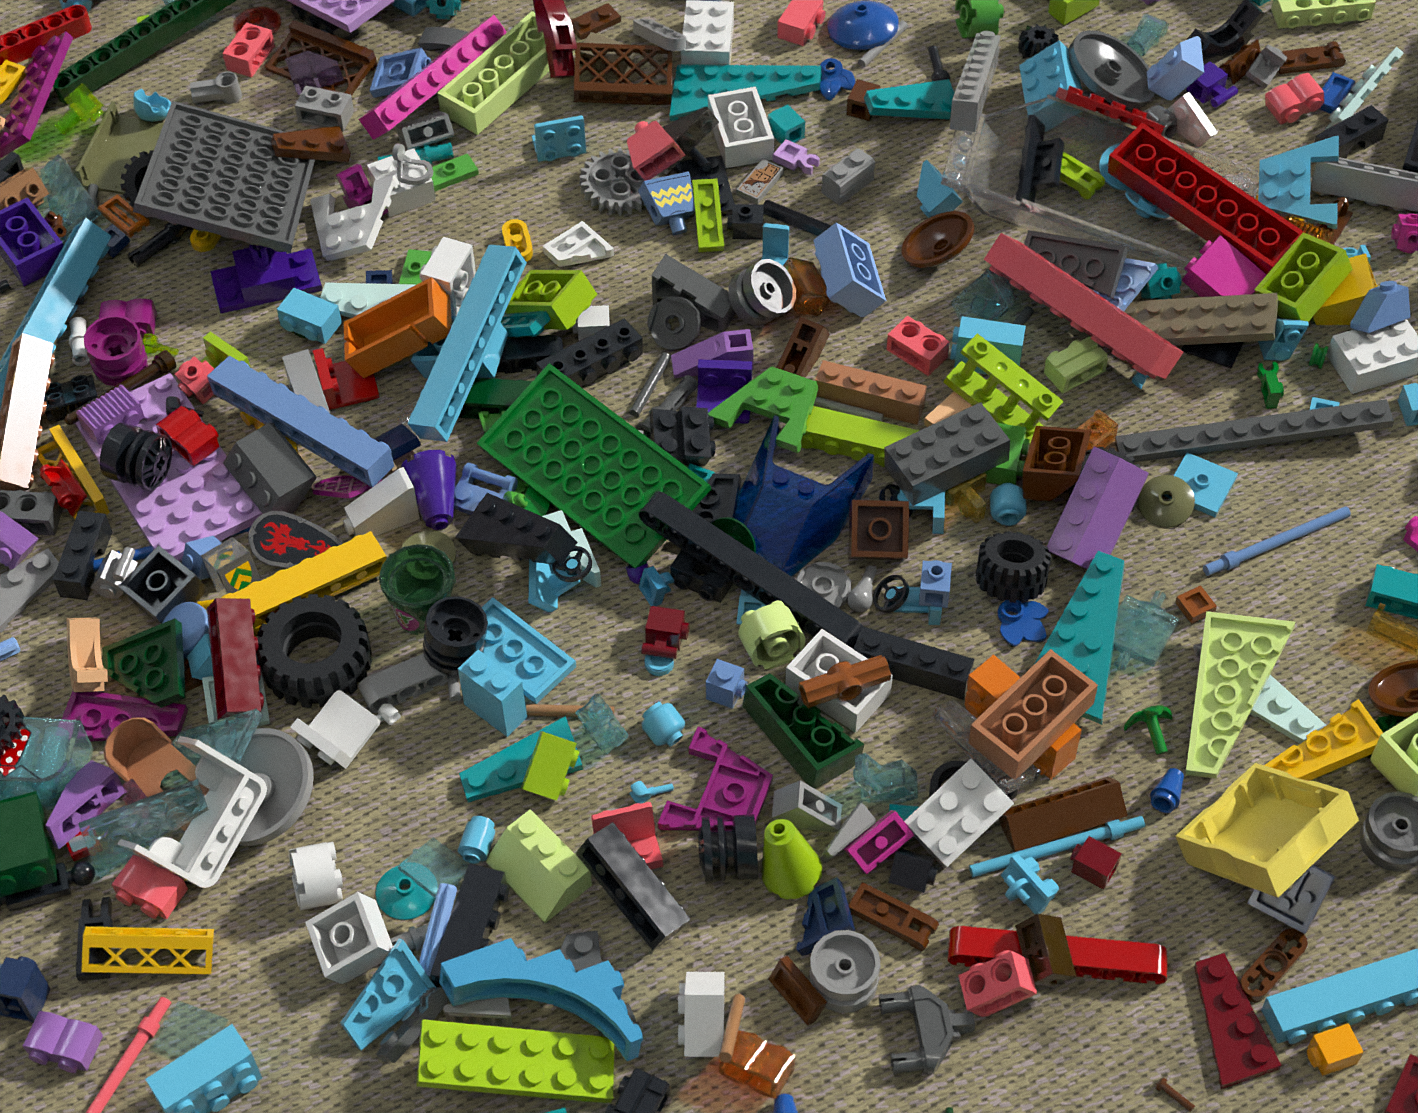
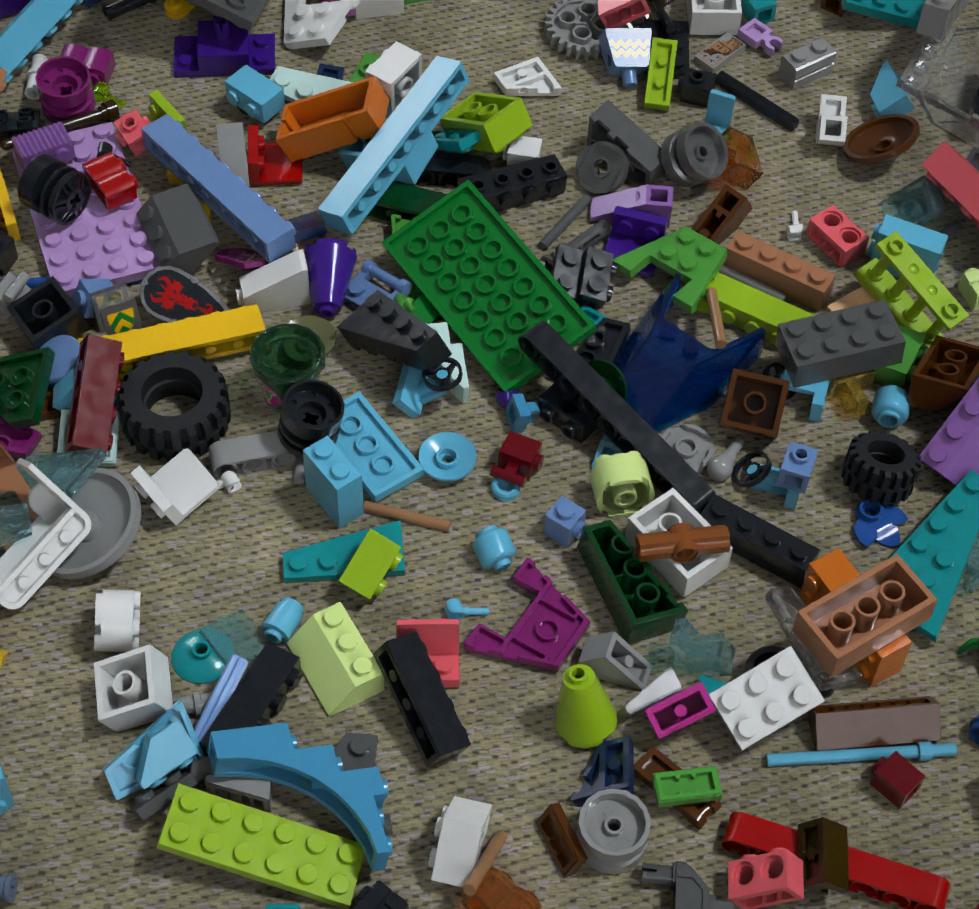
camera: 10 degrees right, 0 degrees up
(397, 991) = (164, 750): none -> medium azure slope
(520, 240) = (473, 61): yellow plate -> none
(591, 634) = (447, 447): none -> medium azure dish
(601, 724) = (432, 534): clear light blue hips -> none
(729, 848) = (527, 682): black wheel -> none
(823, 453) = (716, 318): none -> medium nougat bar
(849, 270) = (785, 151): light blue brick -> none
(874, 349) = (794, 231): none -> white hand
(886, 232) = (831, 120): none -> white brick
(903, 913) = (686, 786): none -> bright green plate
(913, 870) = (707, 745): black brick -> none
(1026, 885) = (819, 785): medium azure hips -> none

